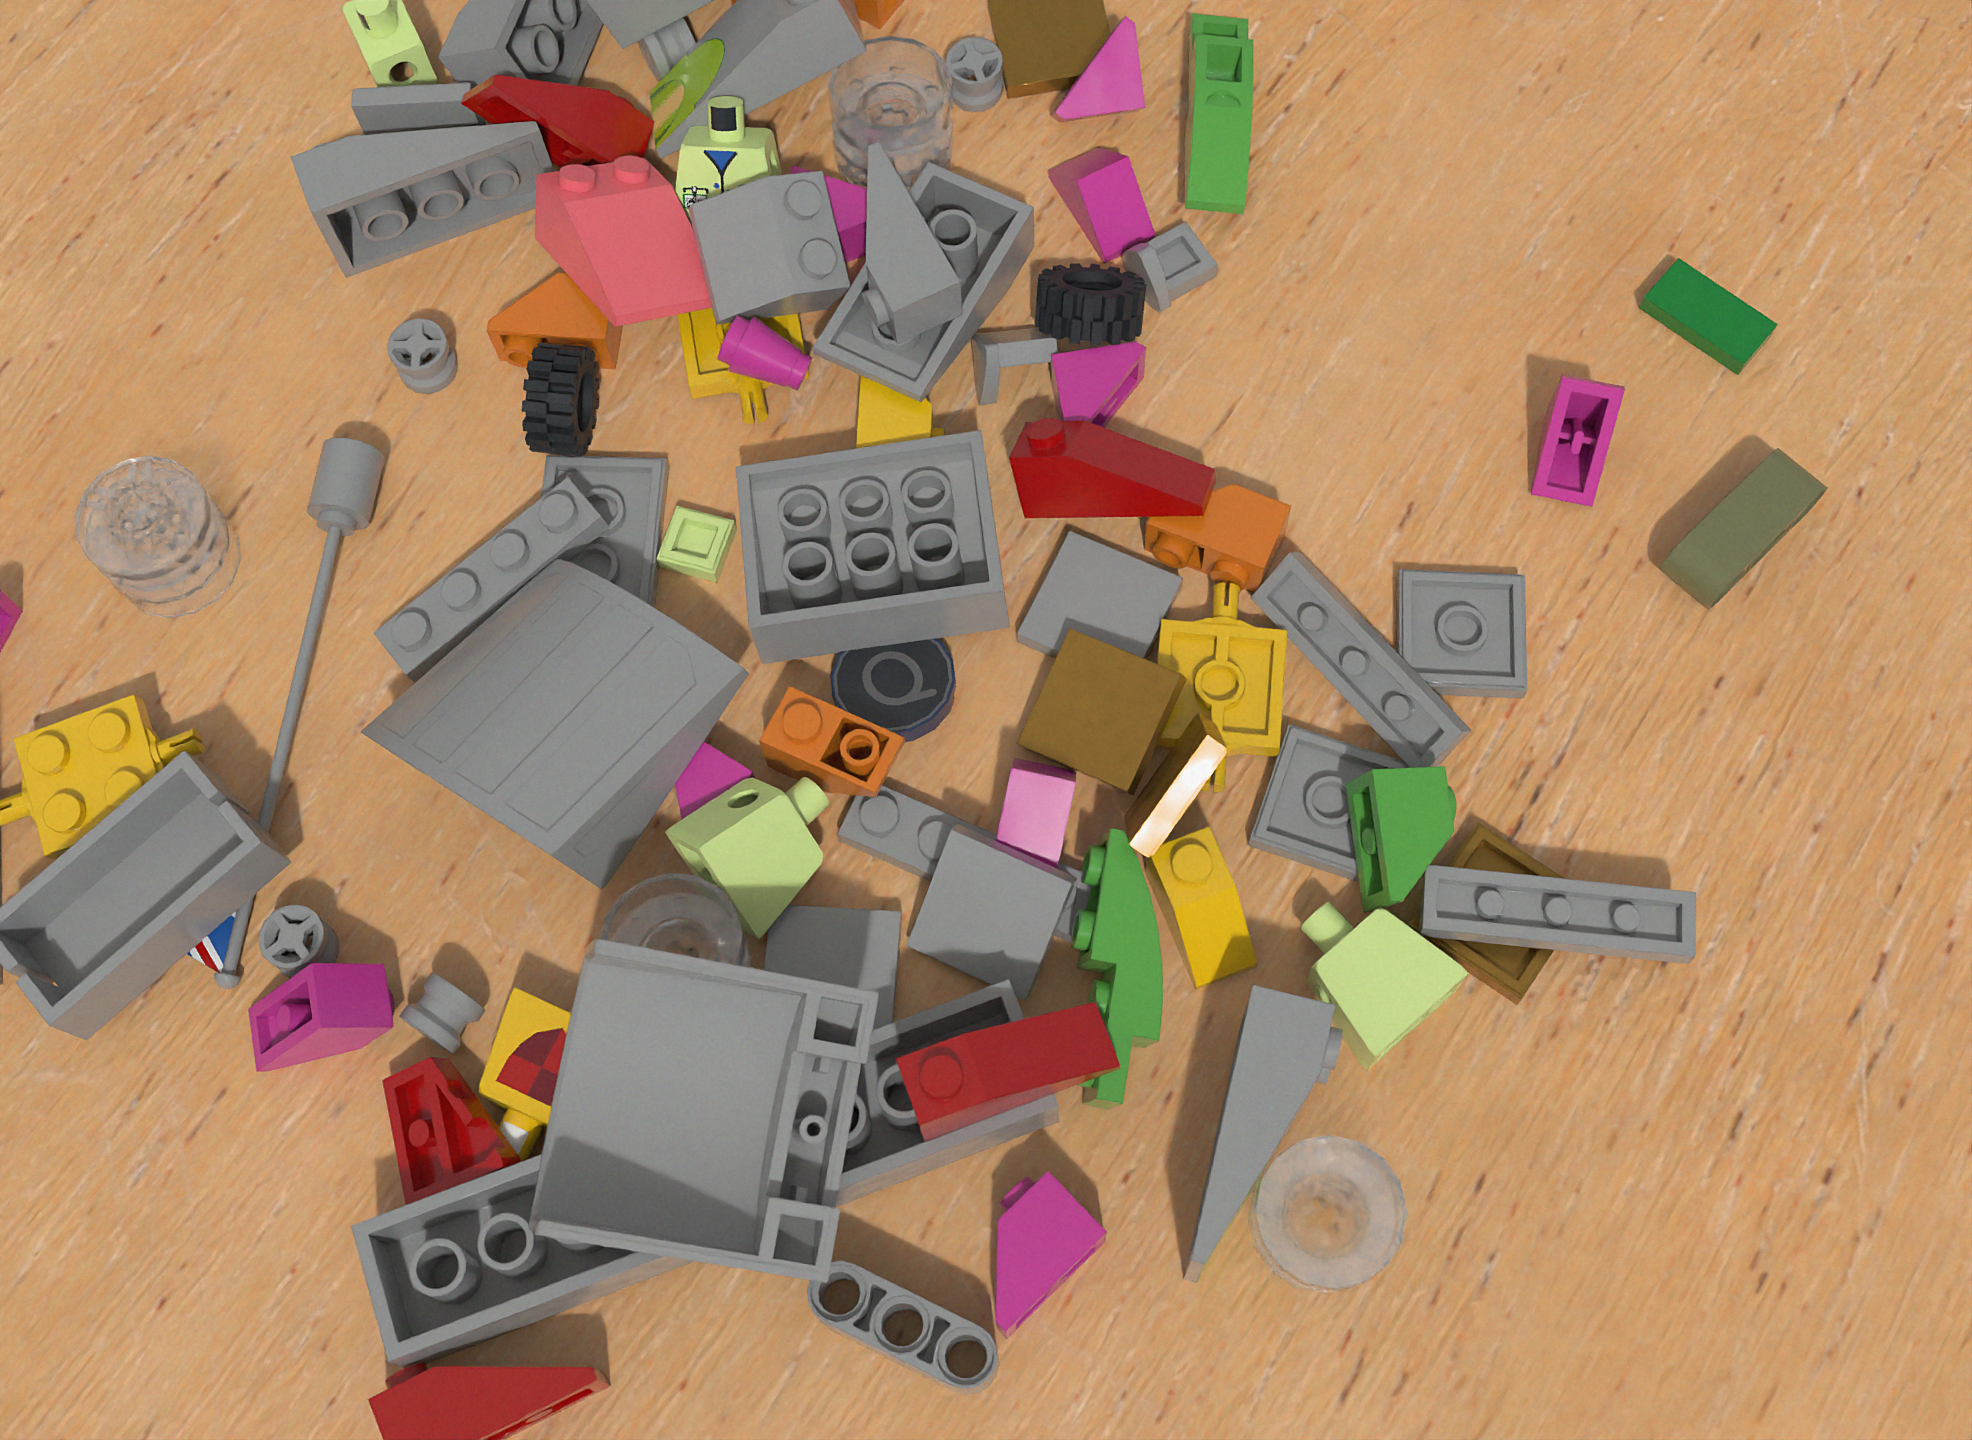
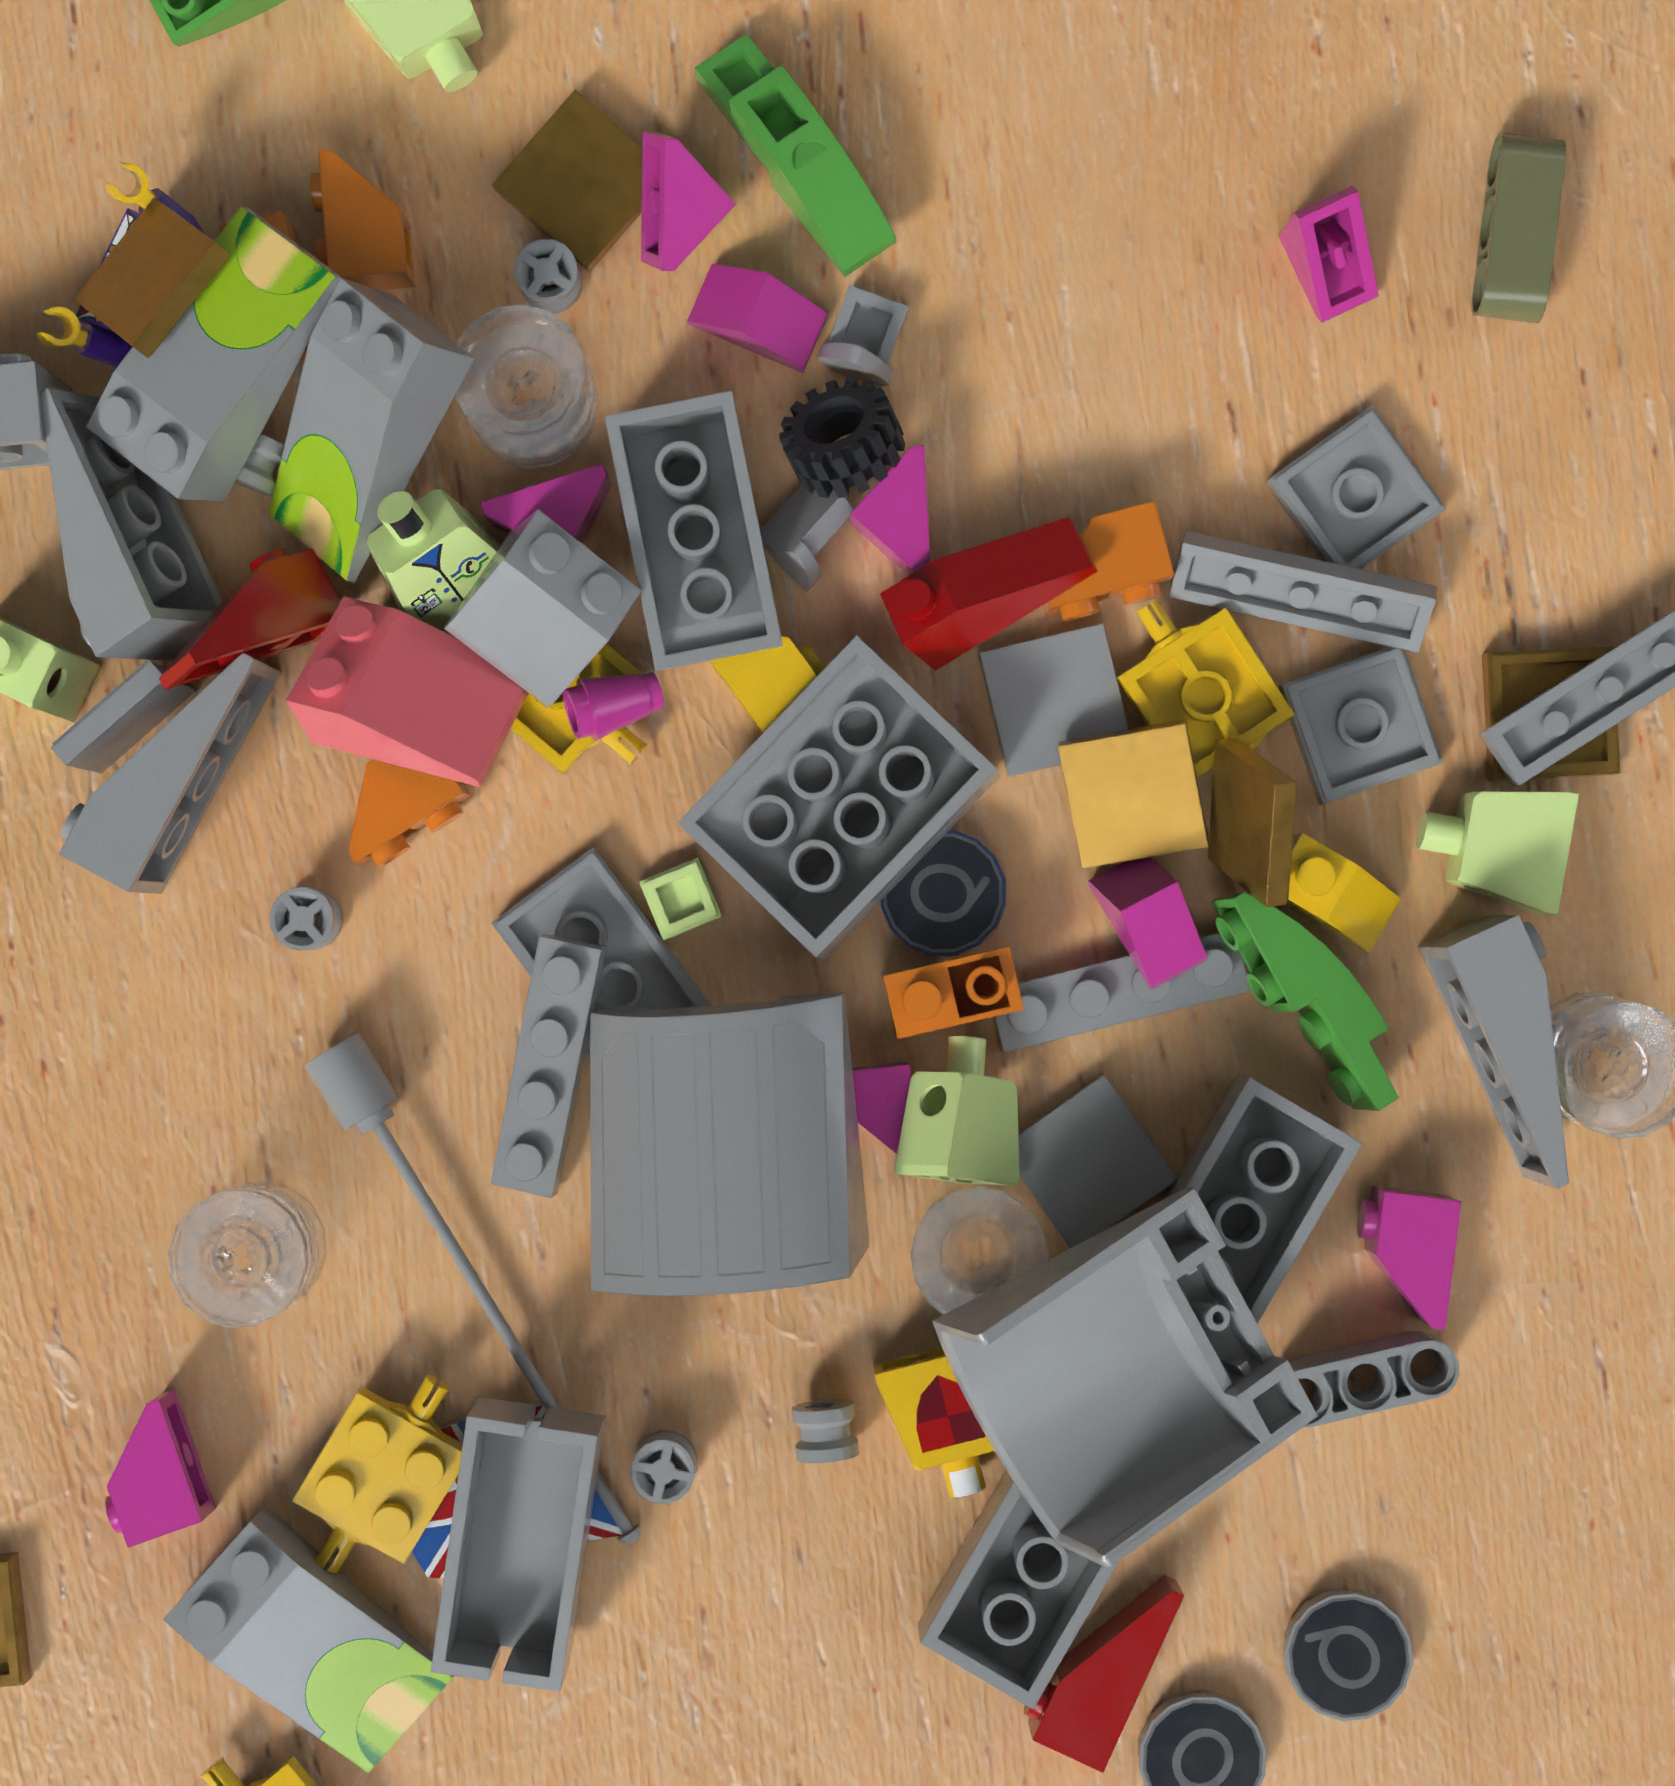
camera: 45 degrees left, 20 degrees up
(321, 1014) = (735, 1507): dark pink slope -> none
(441, 1130) = (910, 1516): red wing -> none
(560, 399) = (472, 873): black tyre -> none
(905, 267) = (680, 542): light grey slope -> none
(991, 910) = (1180, 1024): light grey tile -> none
(1004, 1067) = (1311, 1153): red slope -> none
(1398, 828) = (1443, 717): bright green slope -> none
(1708, 316) = (1351, 36): green tile -> none

